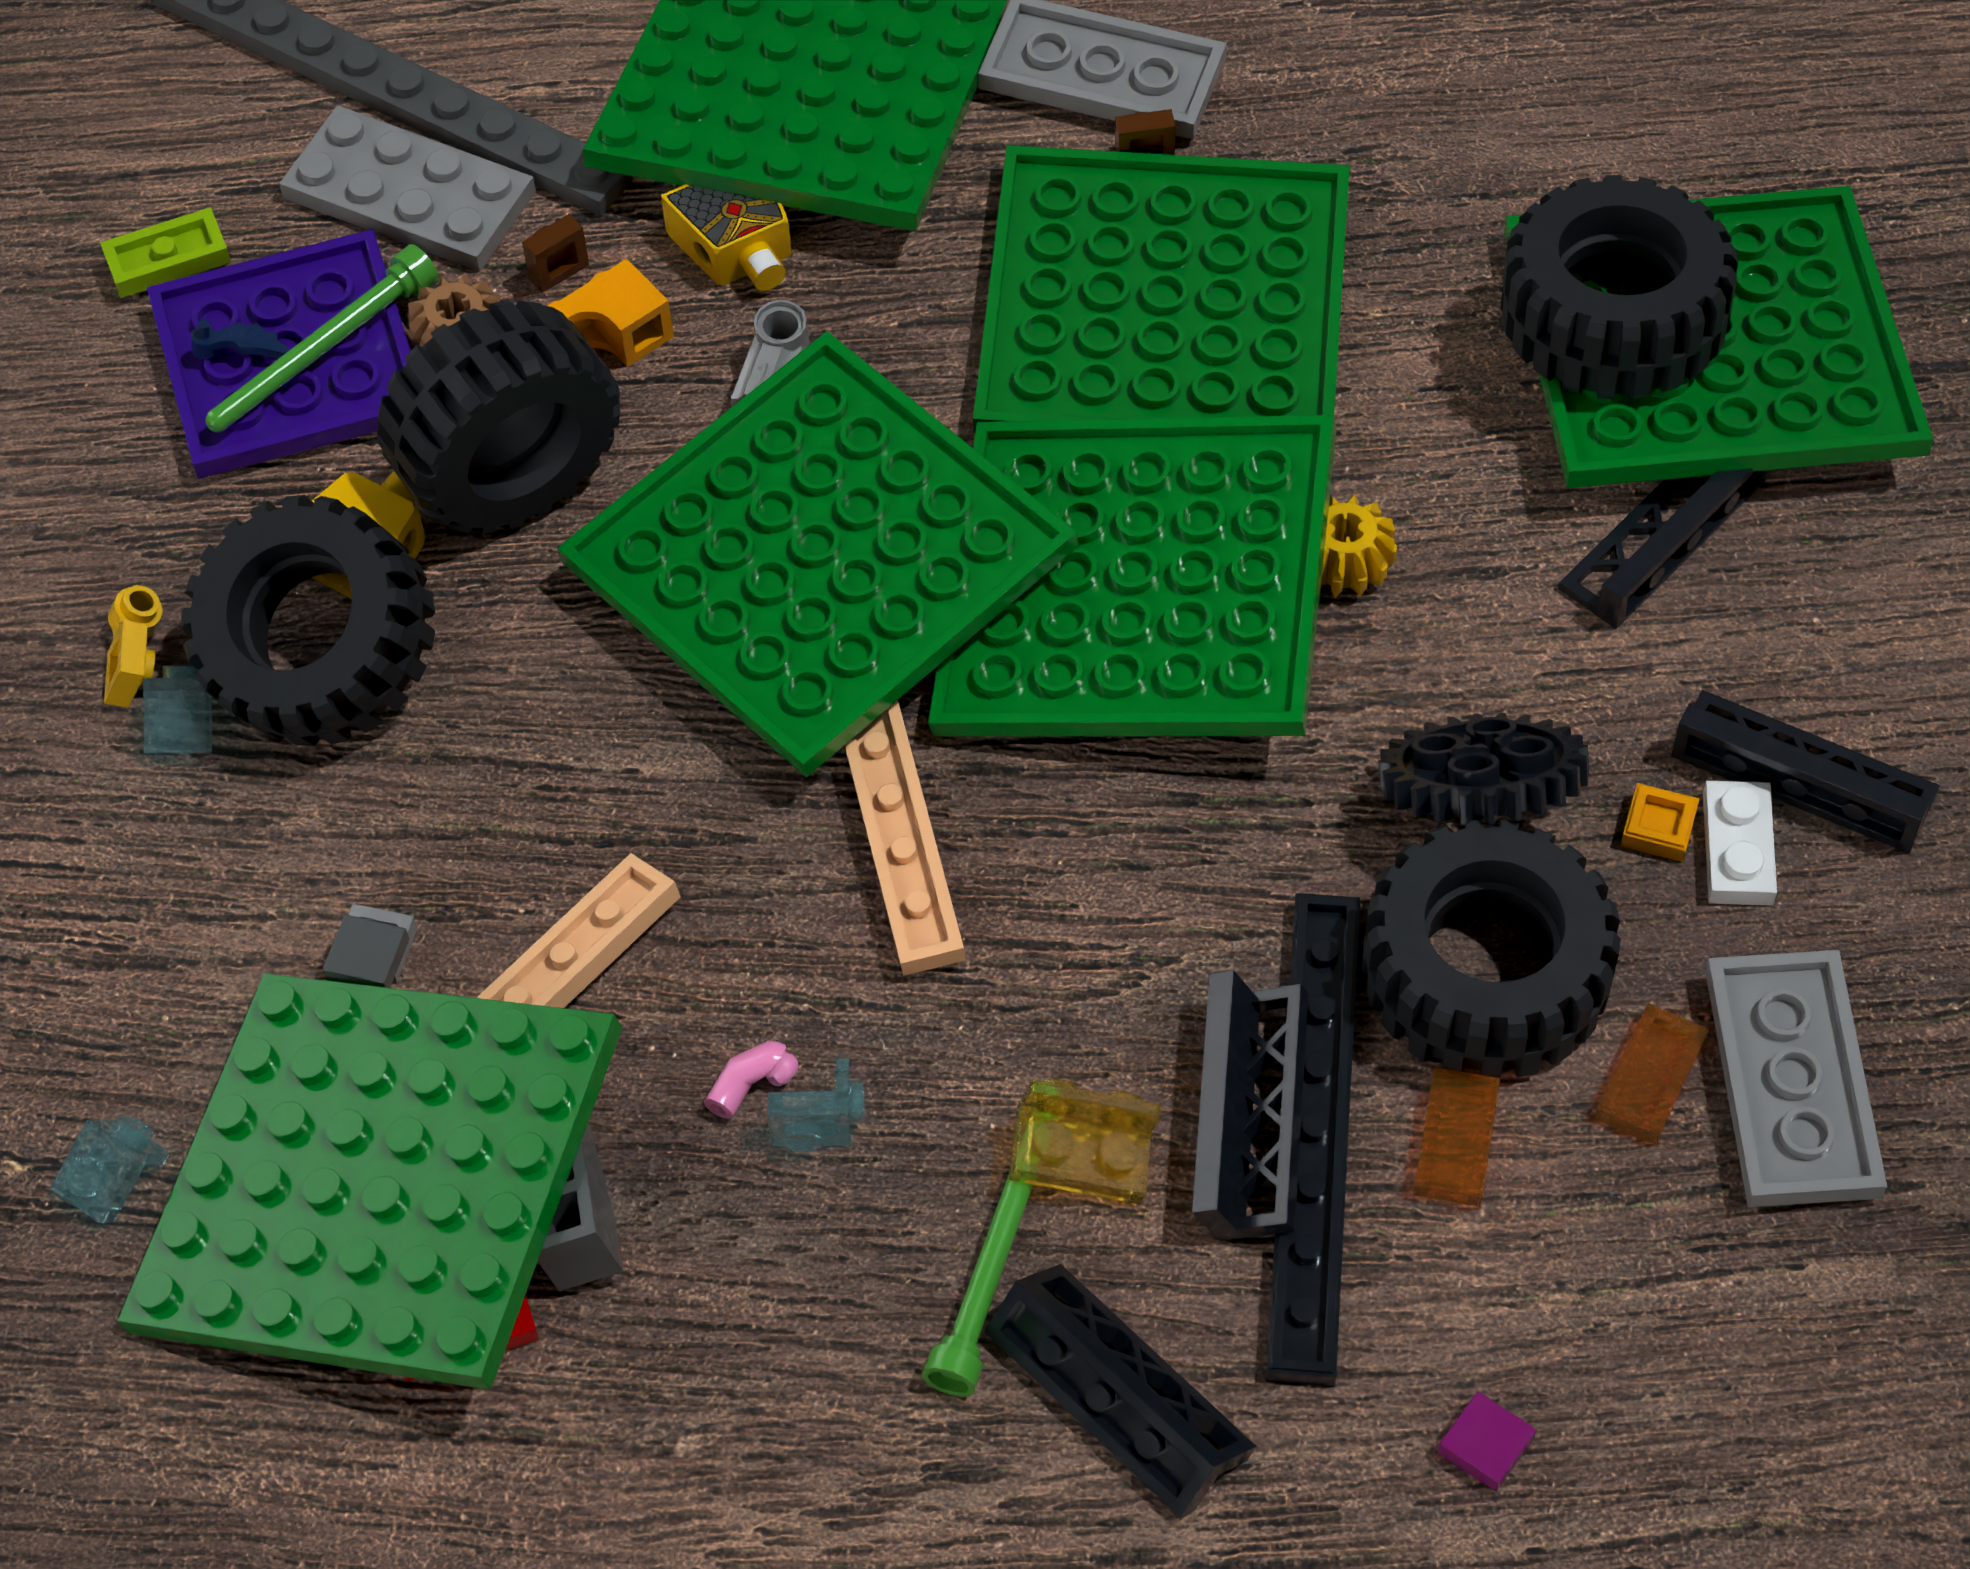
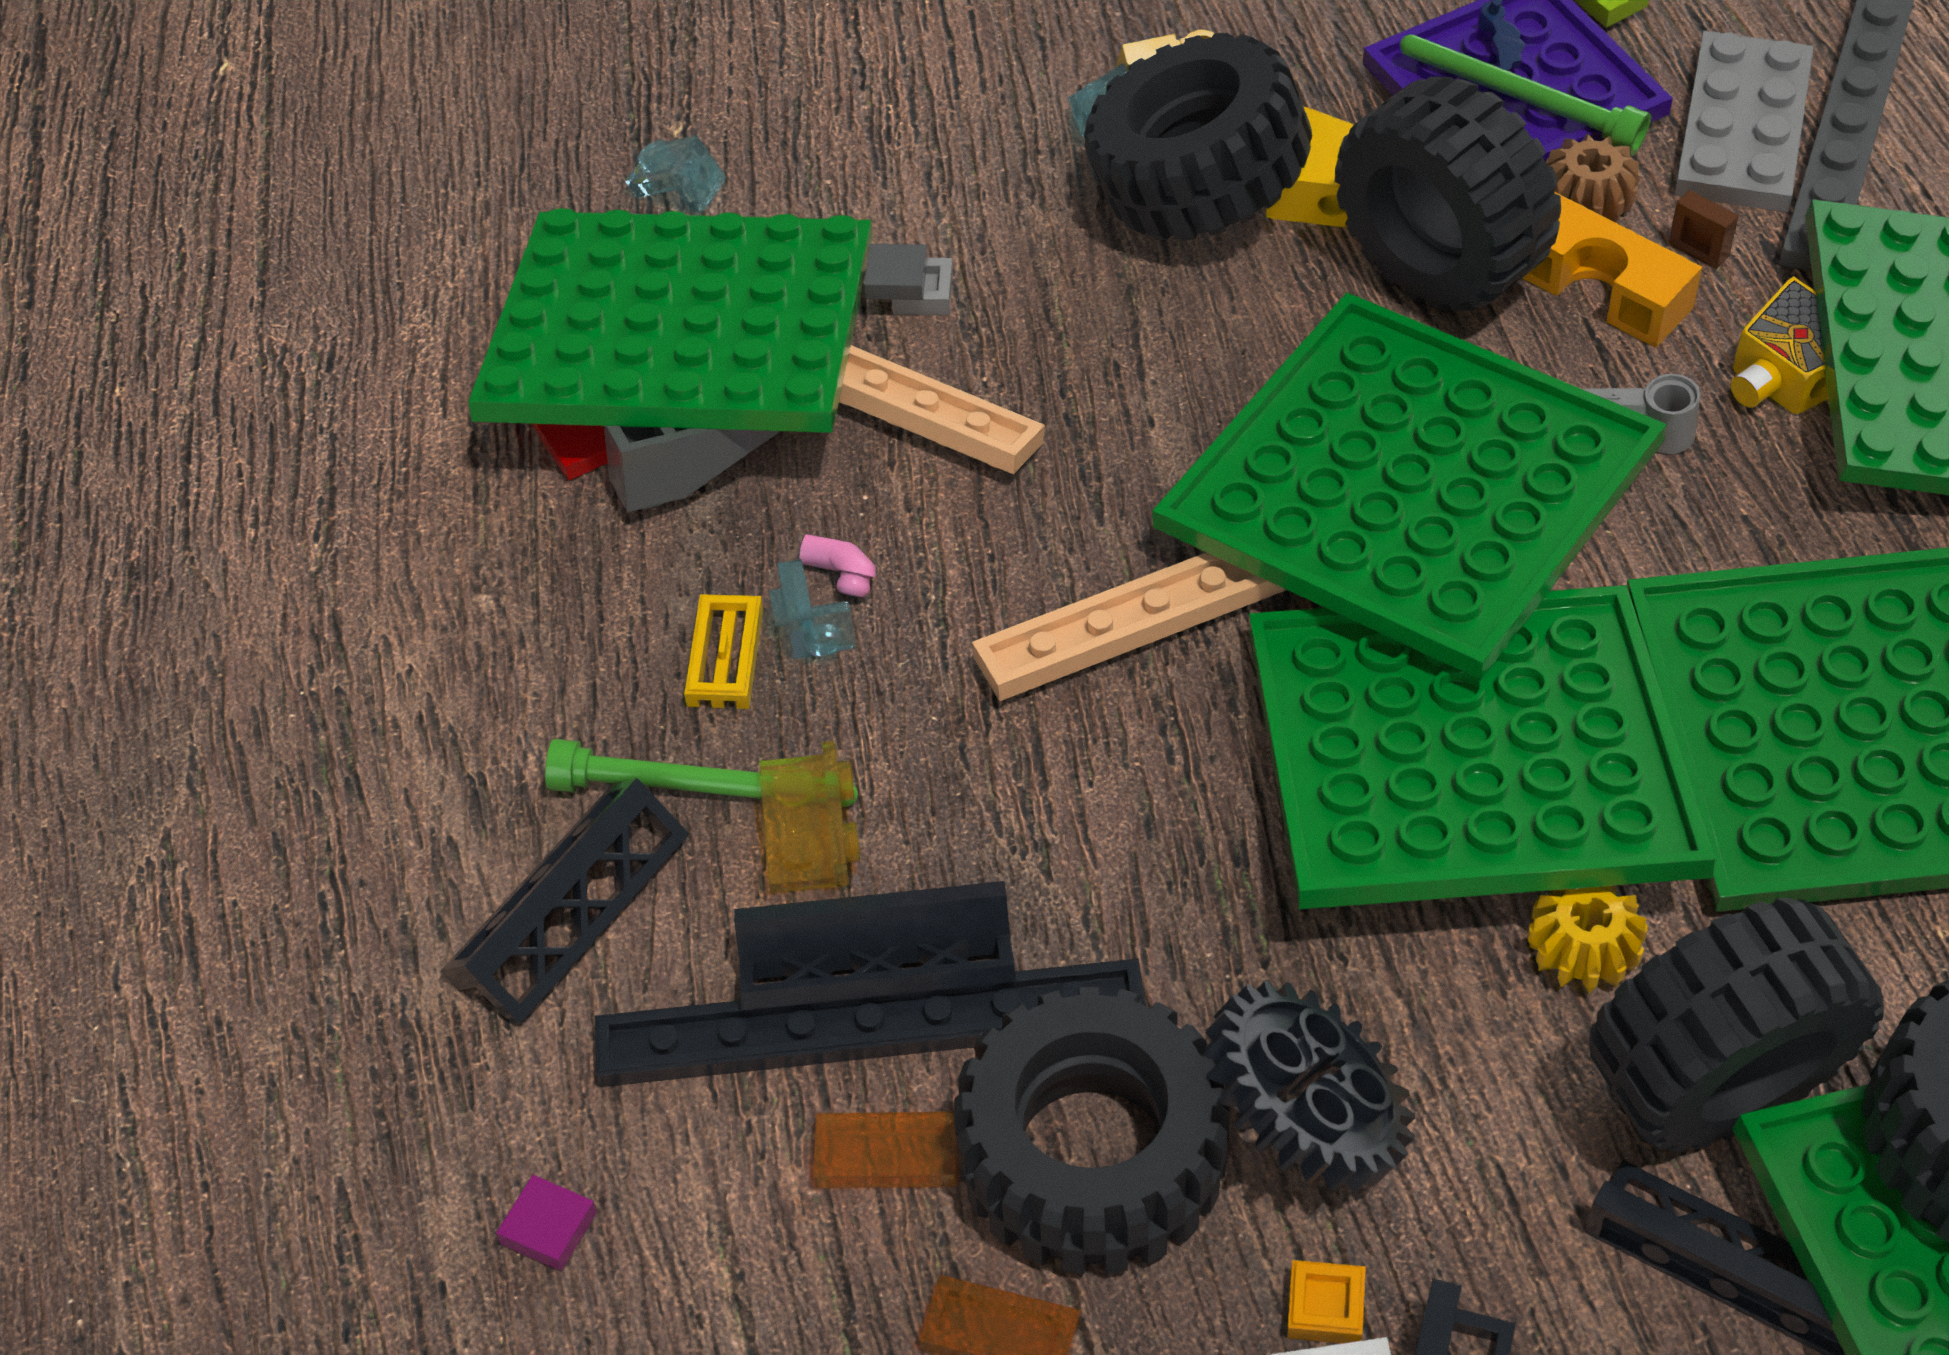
camera: 80 degrees right, 5 degrees down
(825, 1227) = (720, 689): none -> yellow tile
(1512, 438) = (1735, 1022): none -> black tyre

